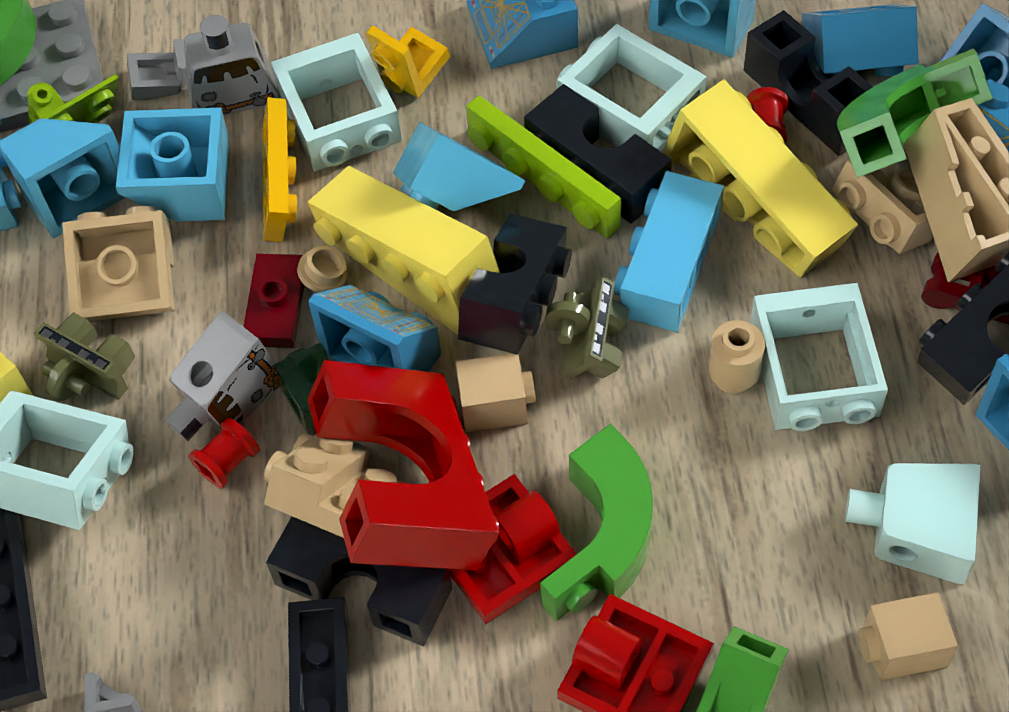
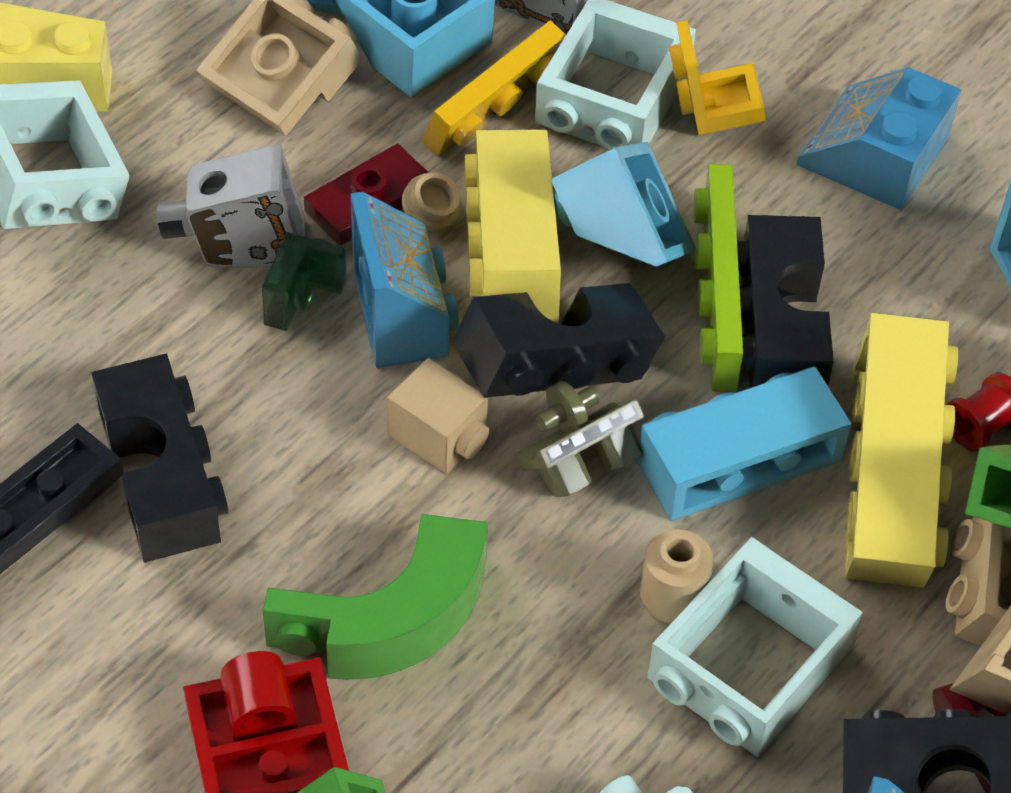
camera: 40 degrees right, 5 degrees down
(75, 366) = (141, 110): olive hips -> none
(224, 453) = (177, 271): red bush -> none
(319, 479) = (215, 368): tan plate -> none
(406, 523) = (243, 457): red arch -> none
(524, 553) = (286, 537): red plate -> none
(623, 47) = (883, 232): light aqua window -> none

